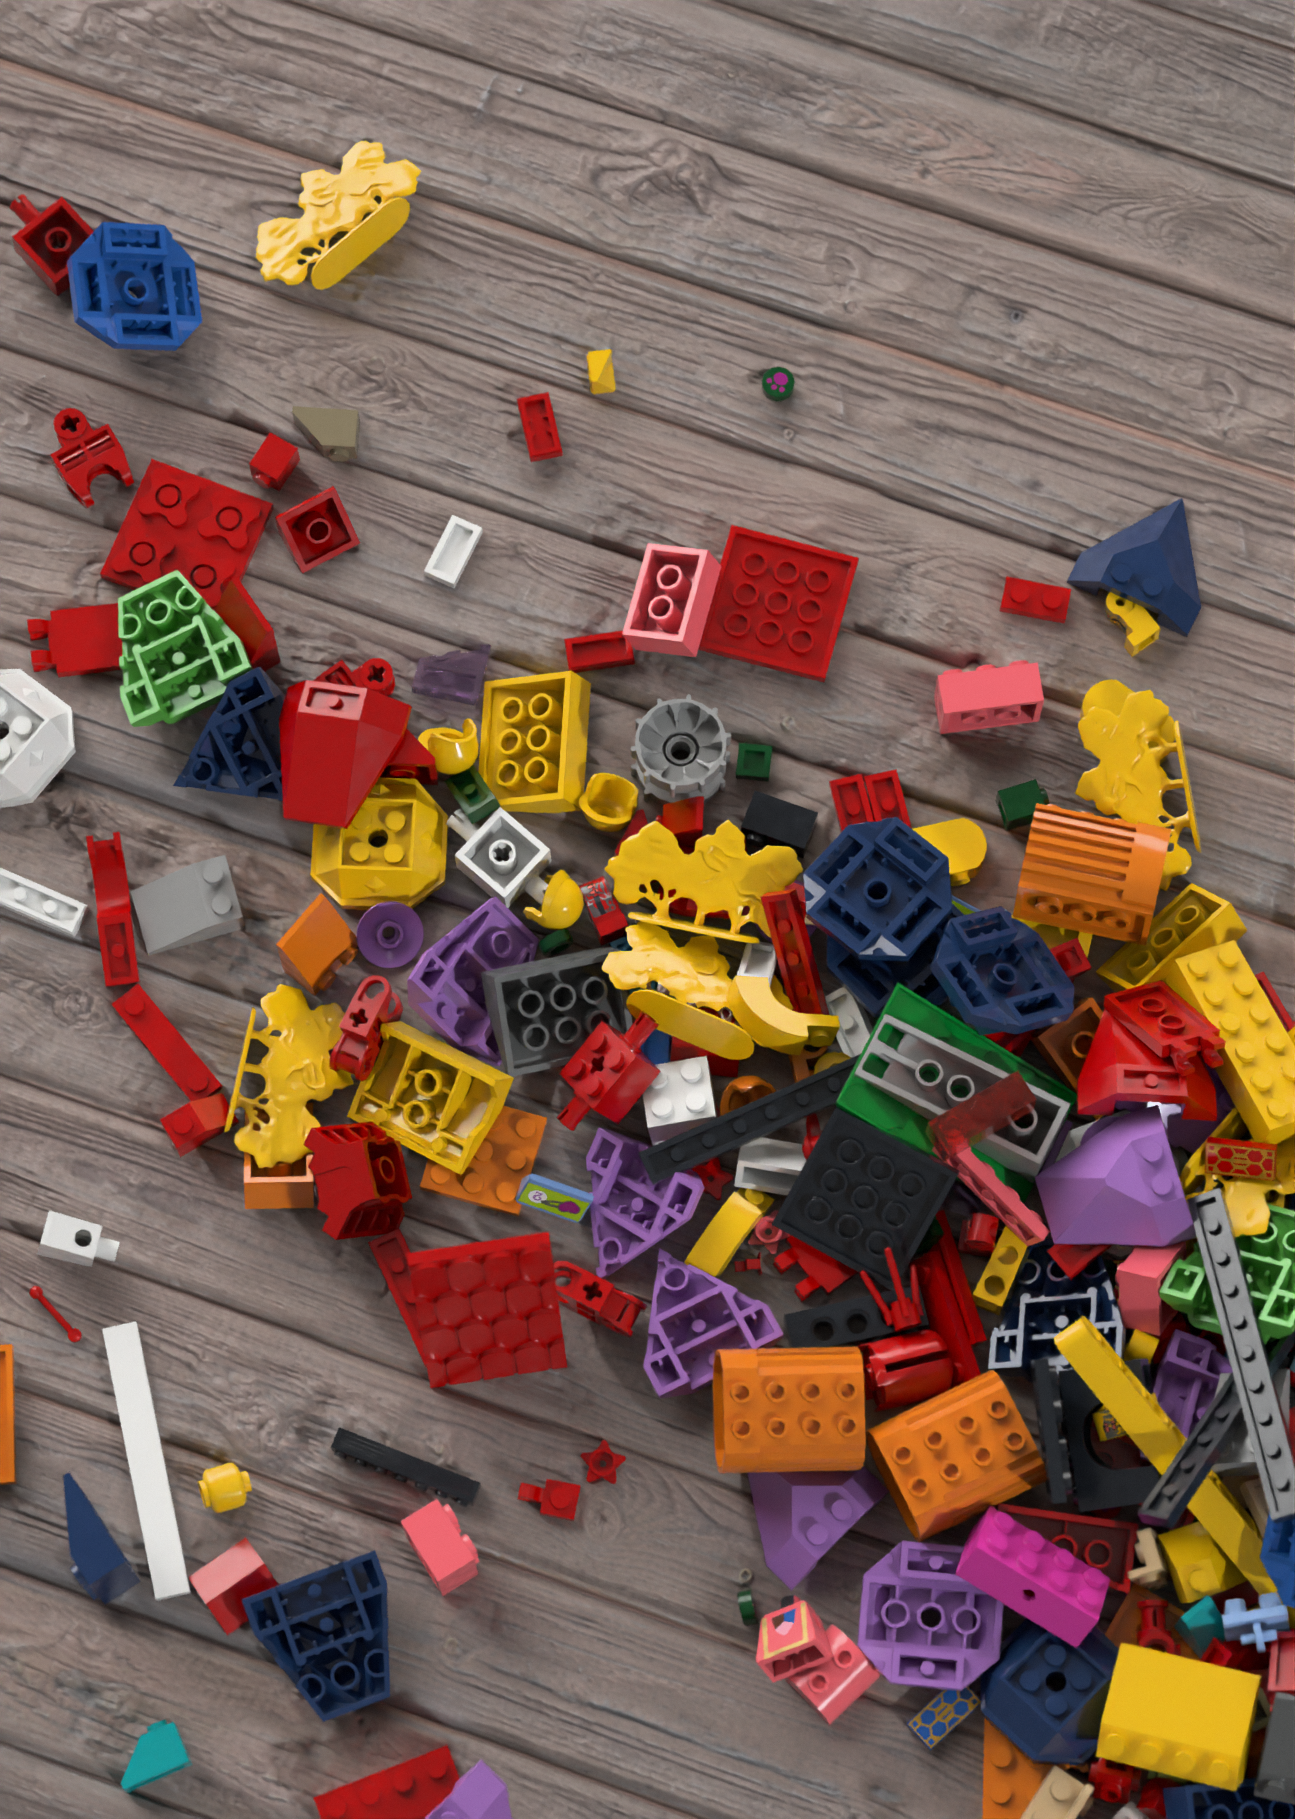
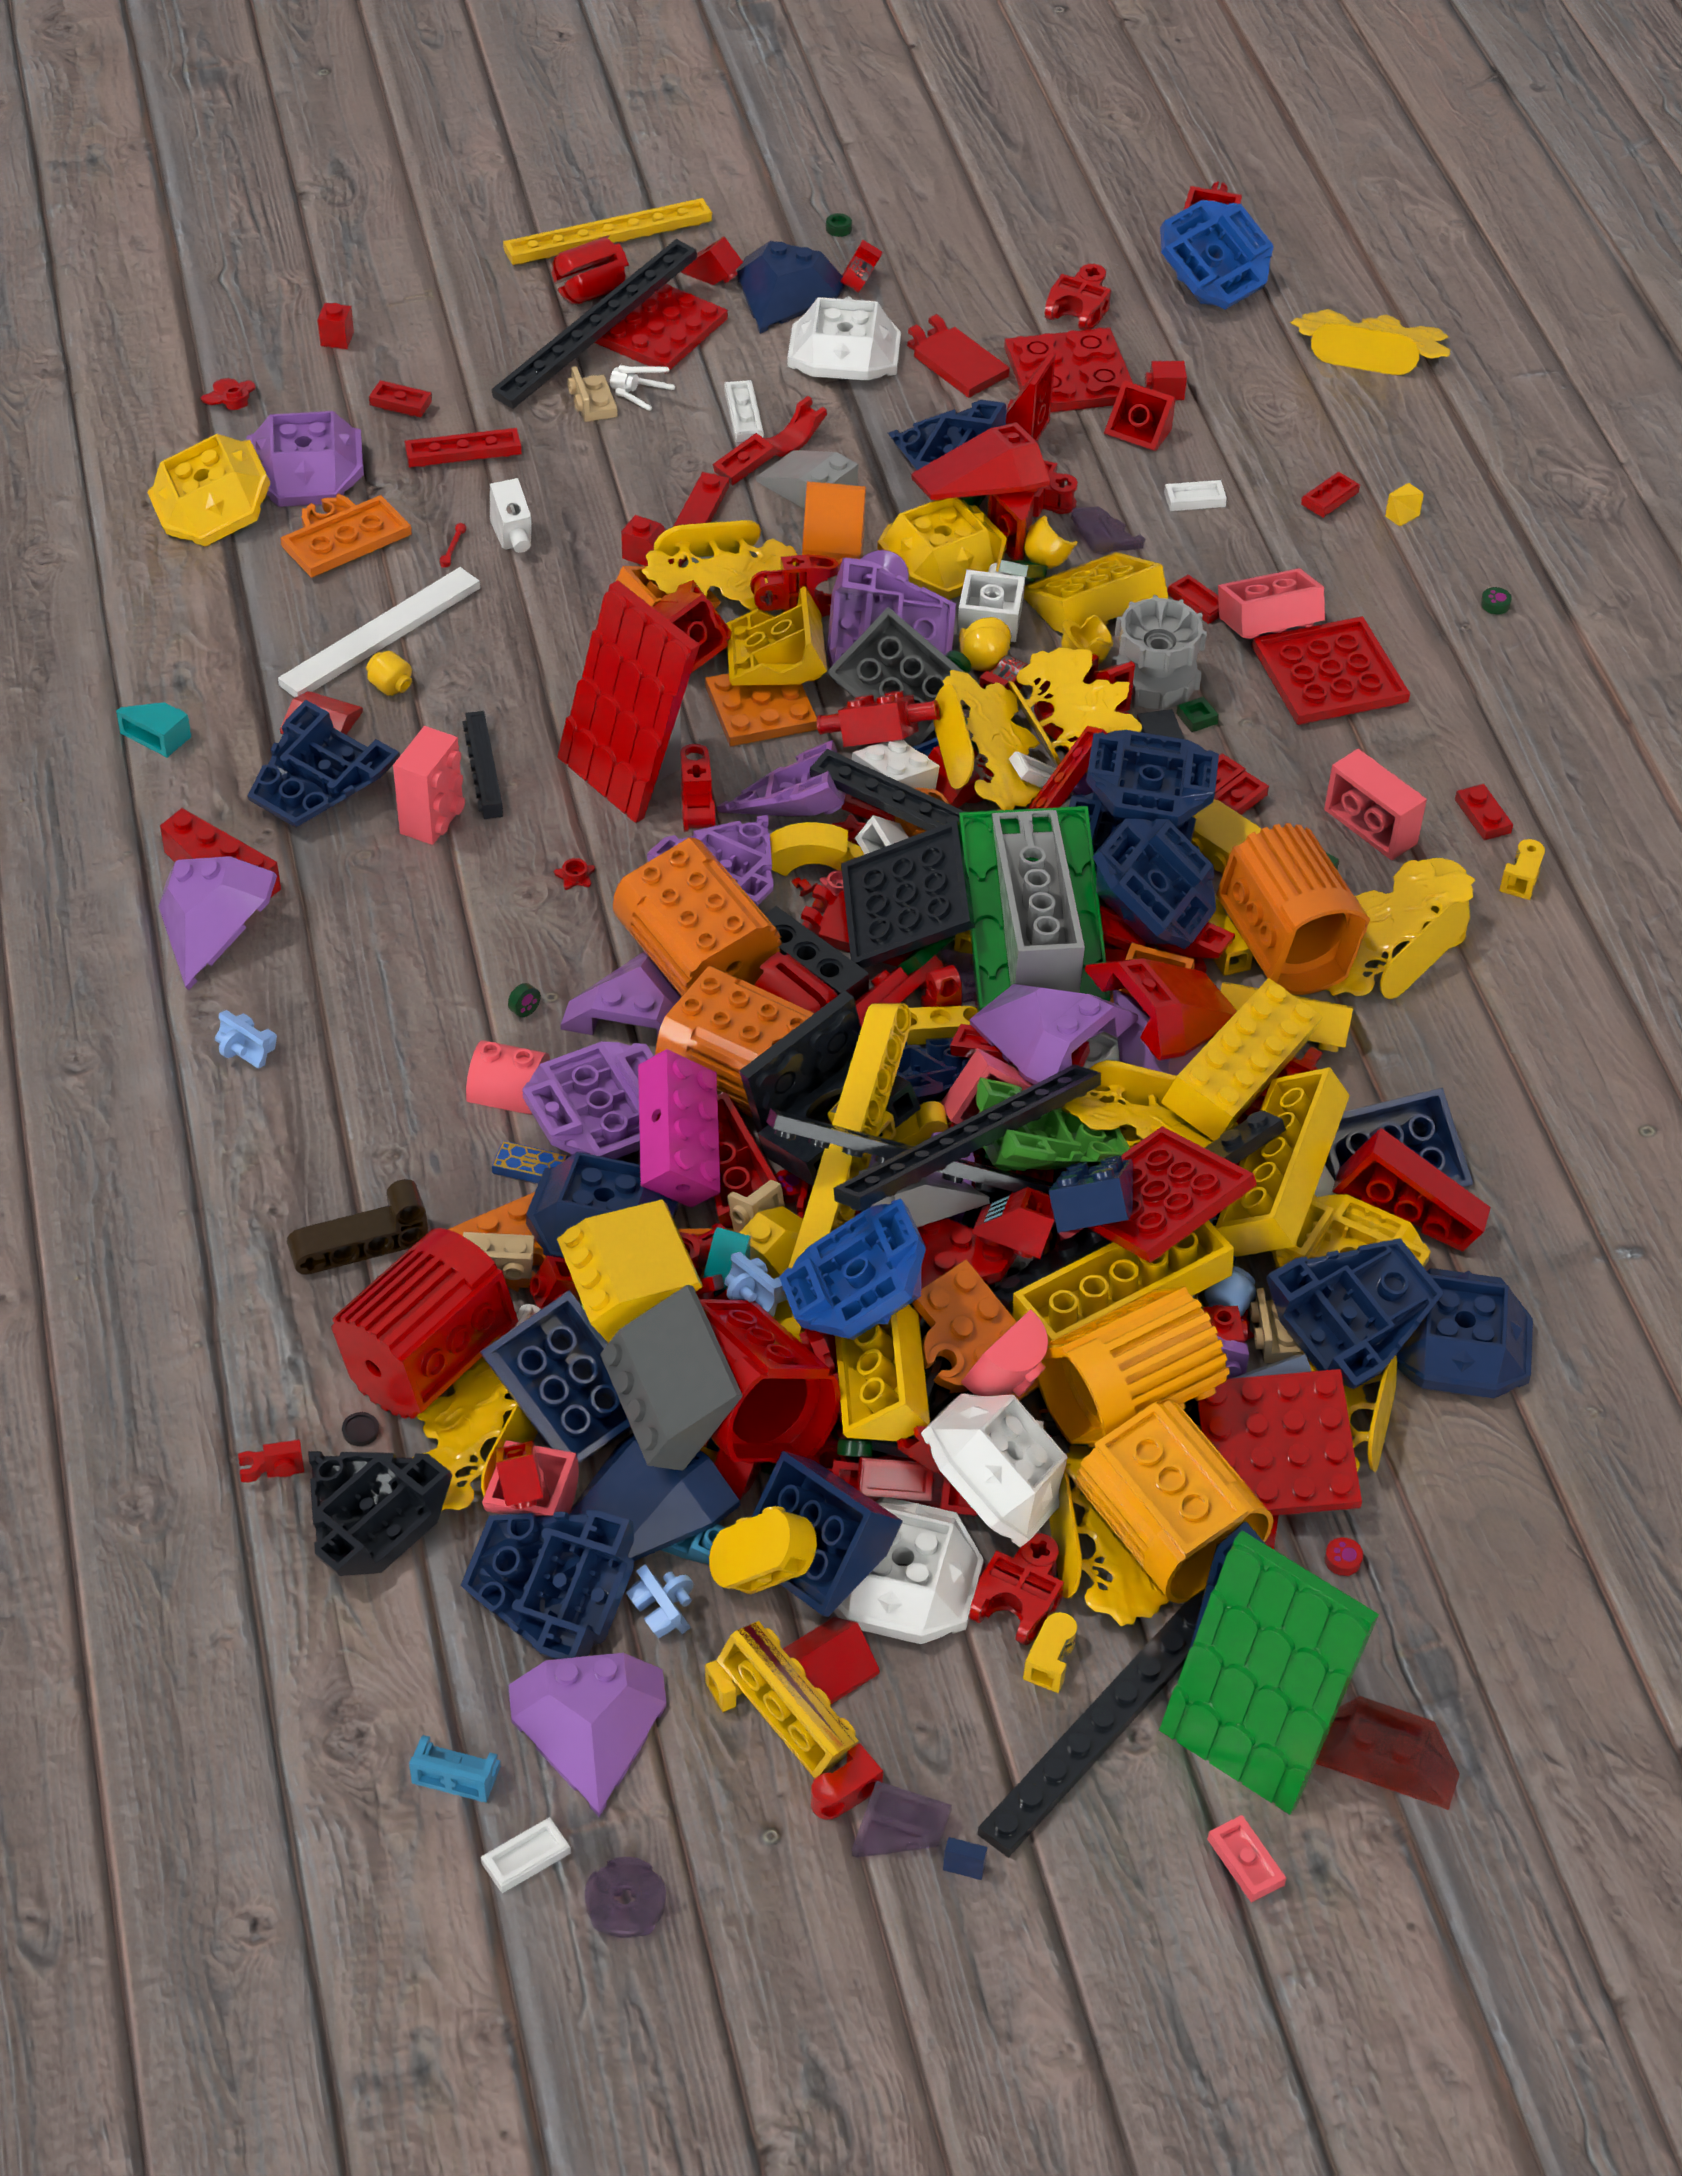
camera: 55 degrees right, 25 degrees down
(97, 1557) = (287, 597): dark blue slope -> none
(174, 652) = (987, 373): bright green wedge -> none
(330, 430) = (1220, 397): dark tan slope -> none
(553, 1197) = (757, 745): slope -> none
(556, 1500) = (523, 856): red plate -> none
(773, 1023) = (997, 778): yellow arch -> none
(791, 1640) = (529, 1029): coral torso -> none
(904, 1312) = (836, 964): red plant -> none
(980, 1115) = (1022, 886): clear red brick -> none
(999, 1198) = (982, 950): coral plate -> none
(1147, 566) = (1578, 864): dark blue wedge -> none
(1167, 1024) = (1209, 990): red tile -> none
(1241, 1158) = (1142, 1091): red tile -> none

